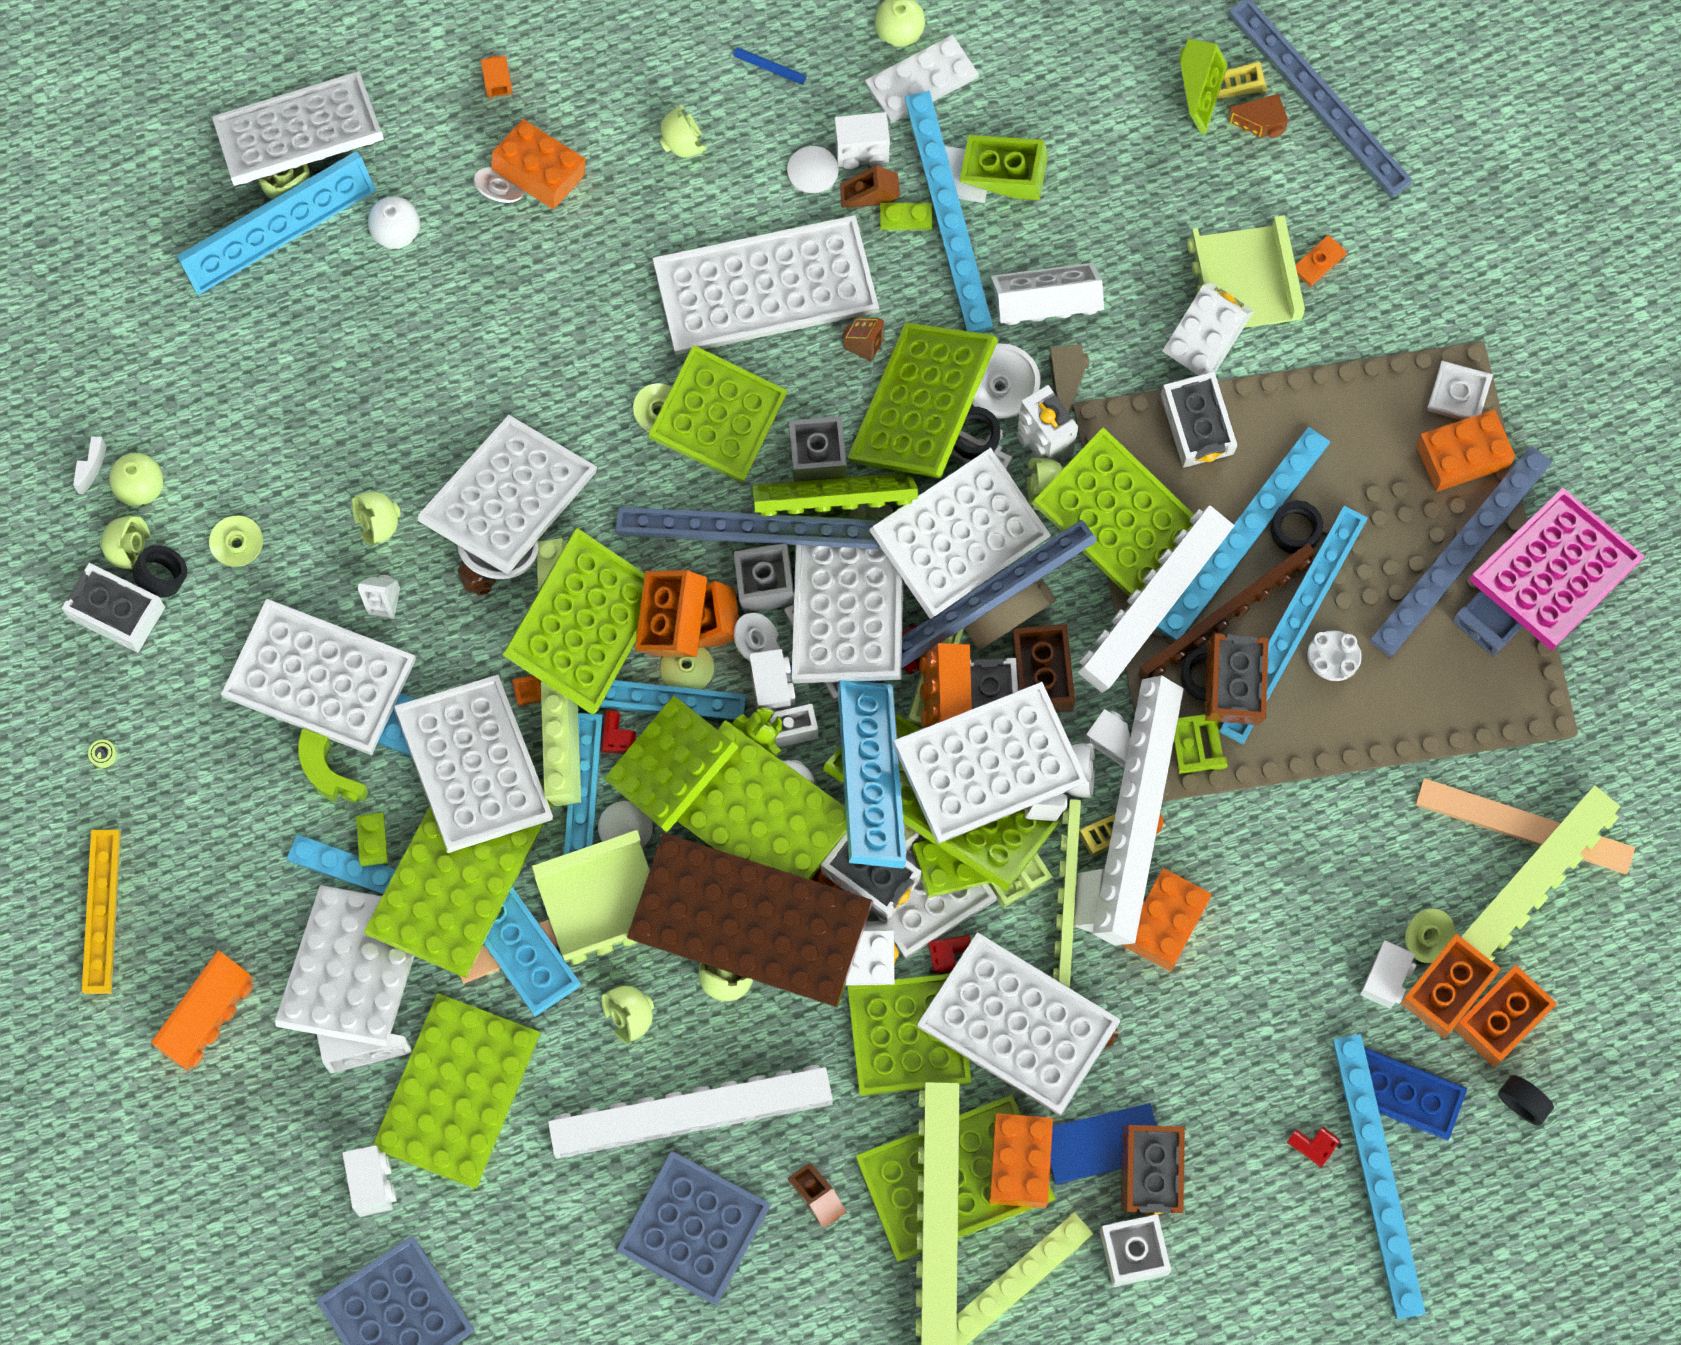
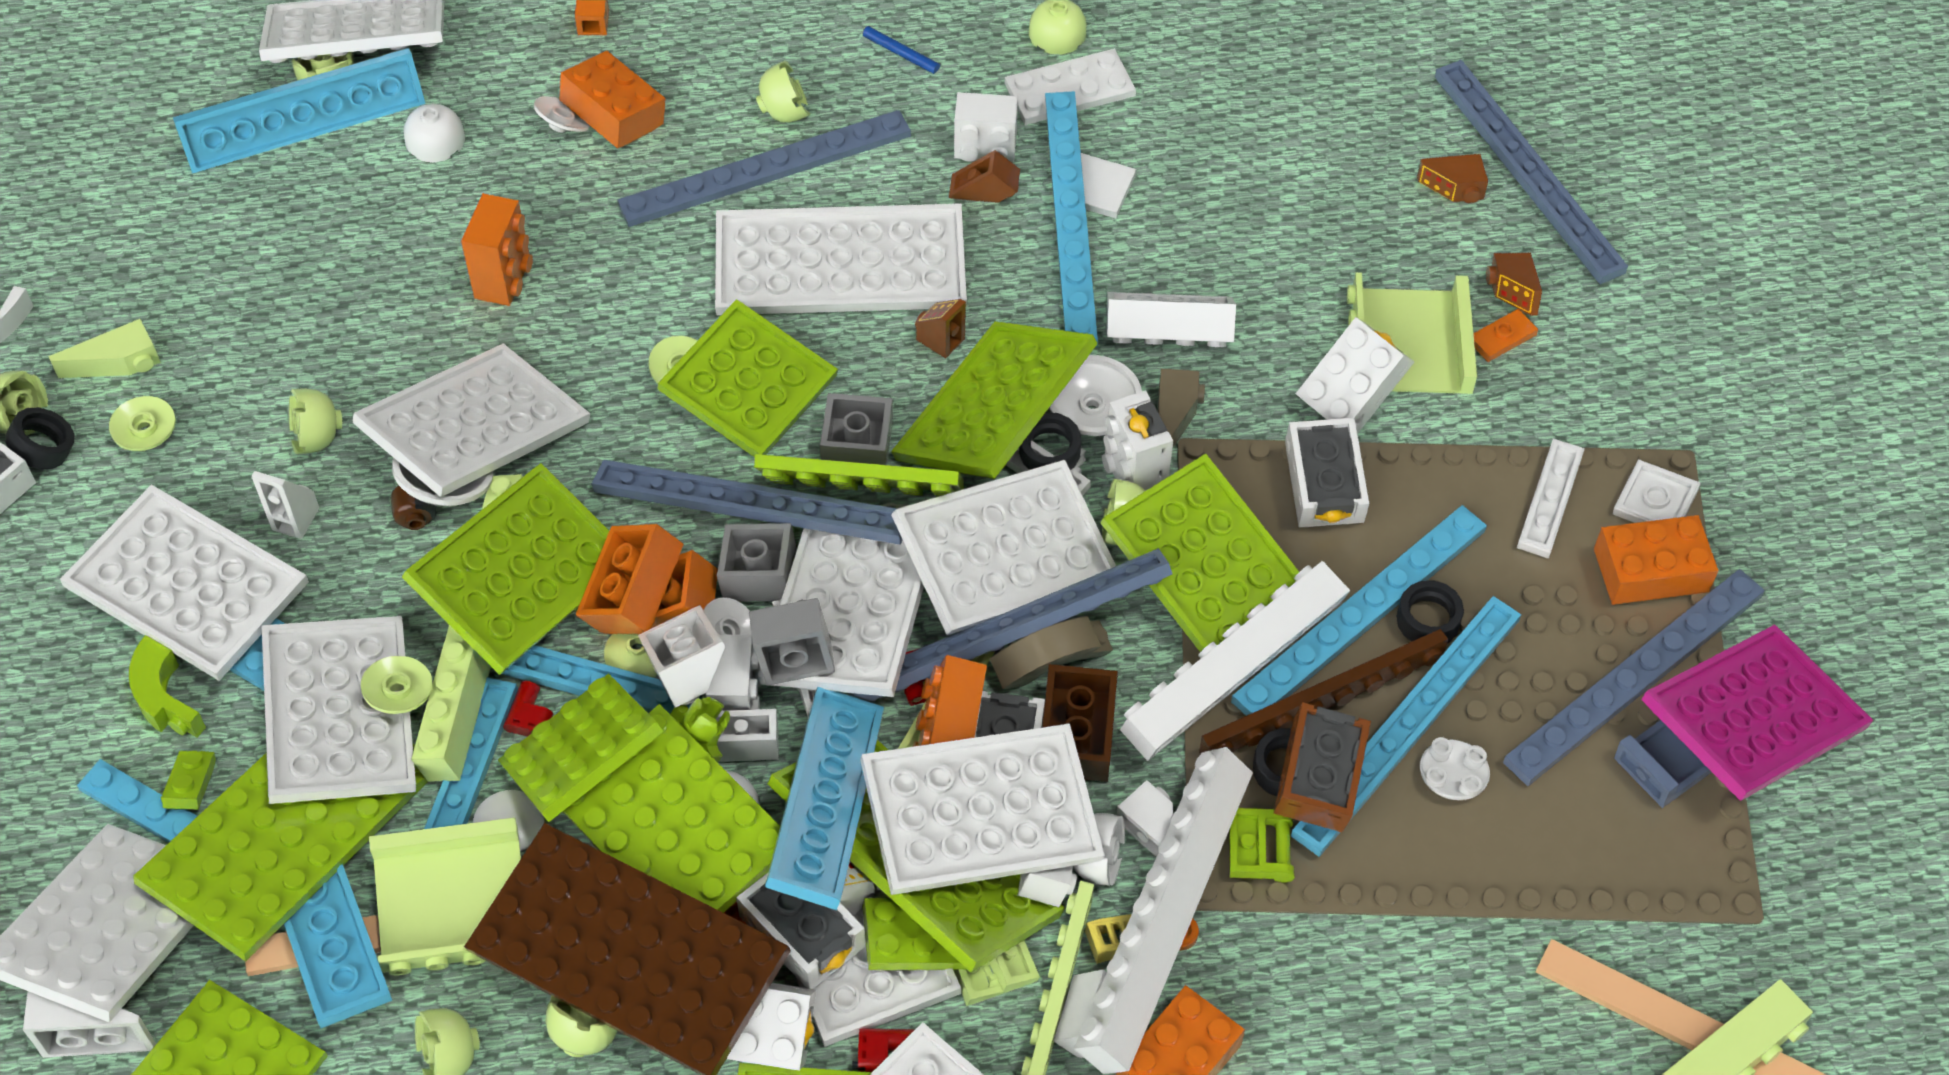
camera: 10 degrees right, 15 degrees down
(136, 479) = (46, 335): yellowish green cylinder -> none
(192, 481) = (109, 354): none -> yellowish green slope
(486, 335) = (496, 249): none -> orange brick
(516, 727) = (396, 674): none -> yellowish green dish
(527, 690) = (431, 643): orange tile -> none
(681, 206) = (763, 168): none -> sand blue plate
(732, 672) = (684, 654): none -> white slope
(812, 169) = (924, 155): white dish -> none
(816, 652) = (791, 641): none -> light grey brick
(905, 216) = (1021, 216): lime plate -> none
(1005, 165) = (1148, 180): lime slope -> none
(1203, 75) = (1394, 125): lime slope -> none
(1248, 88) = (1438, 149): light yellow slope -> none
(1323, 211) = (1515, 281): none -> dark orange slope
(1377, 407) = (1550, 498): none -> white tile

